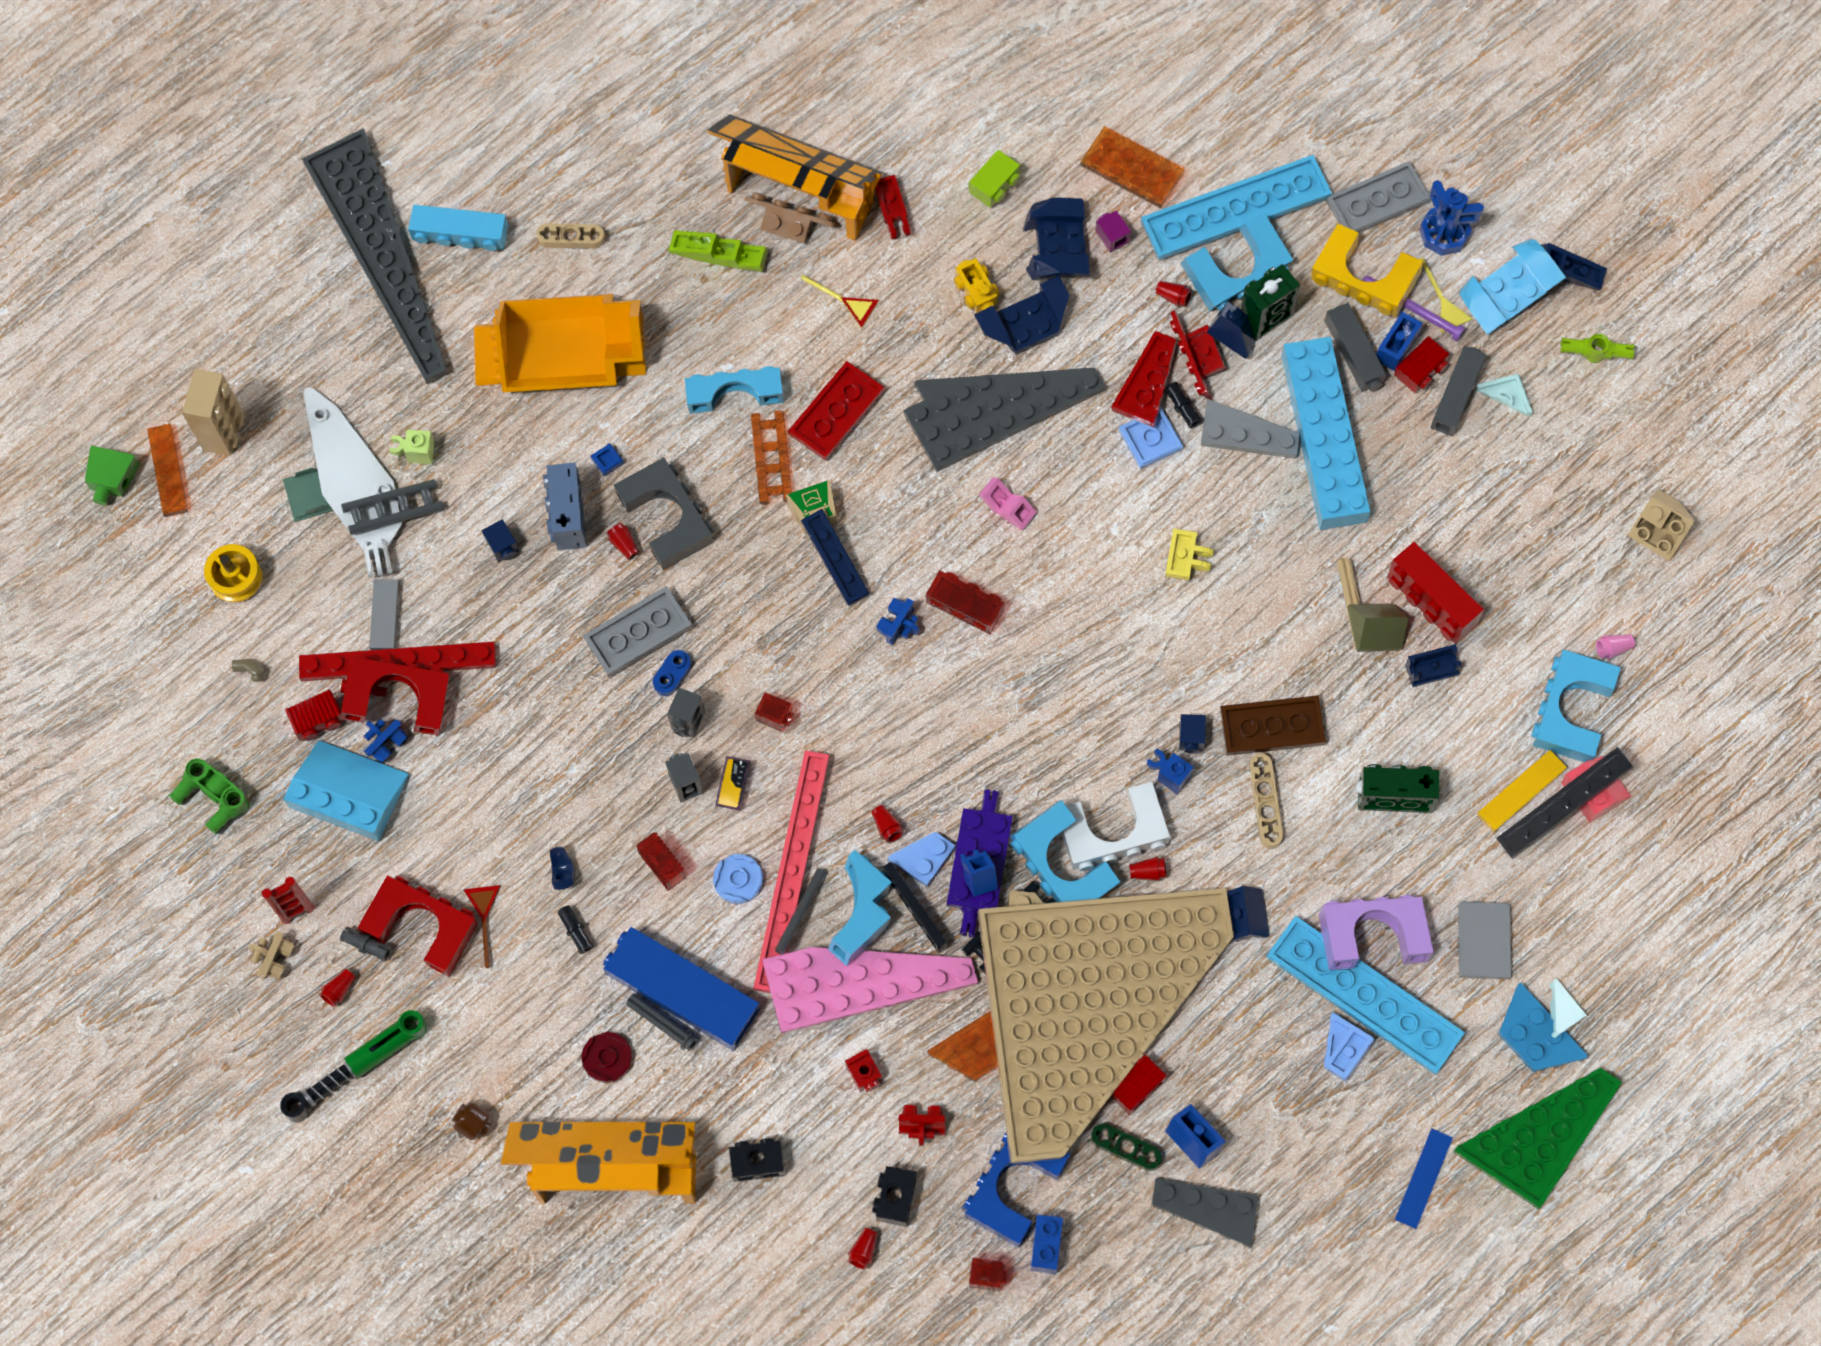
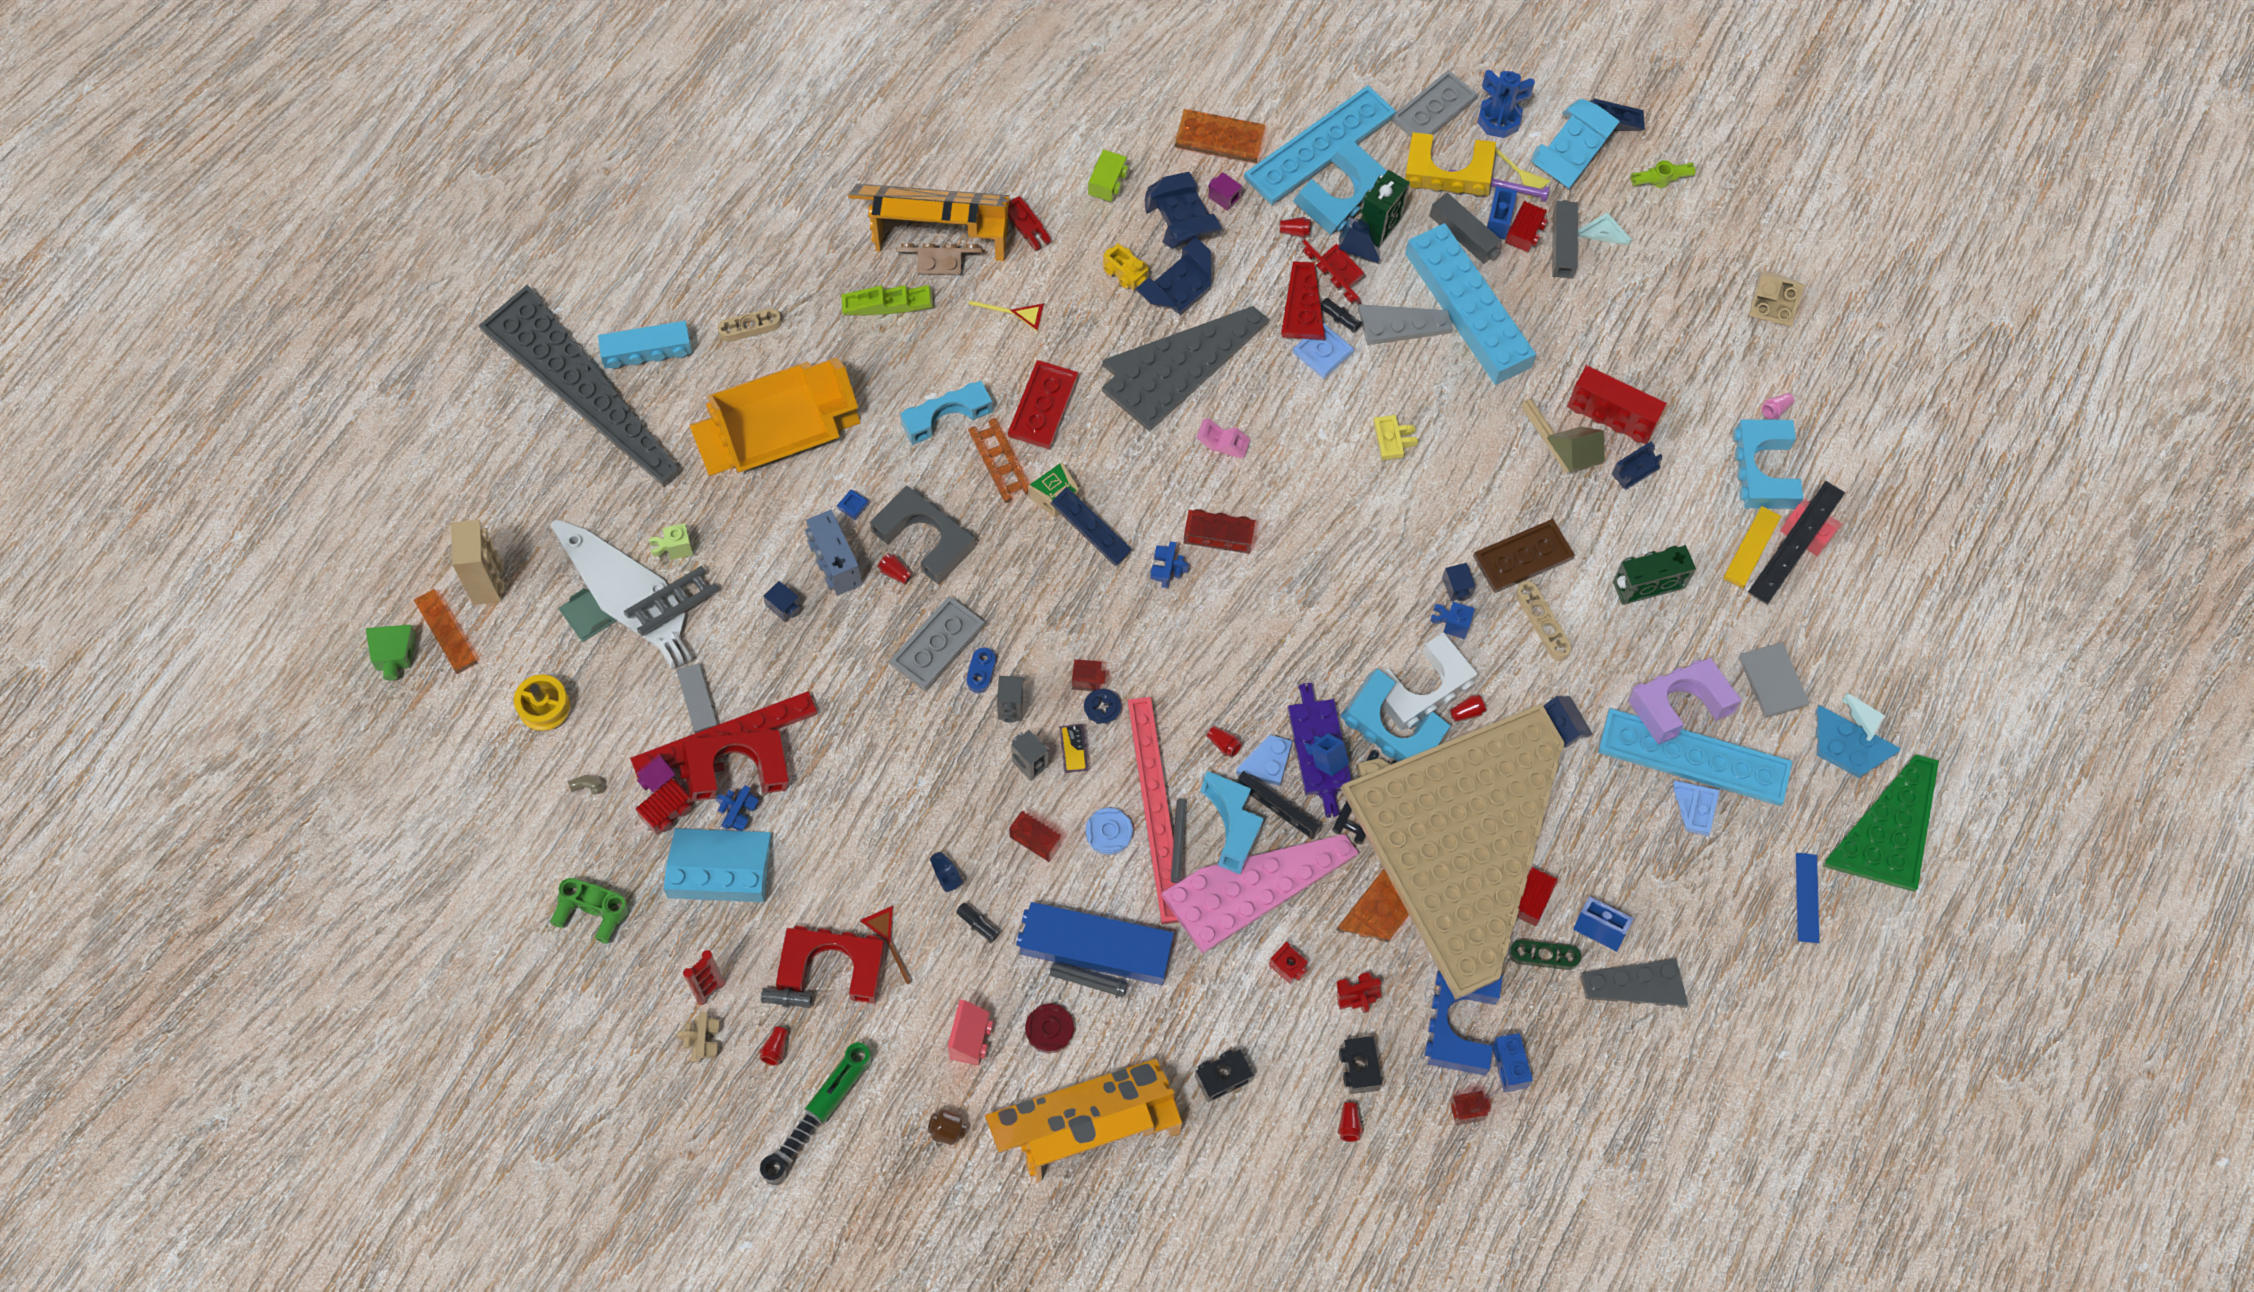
camera: 25 degrees left, 5 degrees down
(315, 680) = (655, 773): none -> magenta brick
(524, 1037) = (969, 1033): none -> coral slope
(770, 741) = (1109, 699): none -> dark blue gear

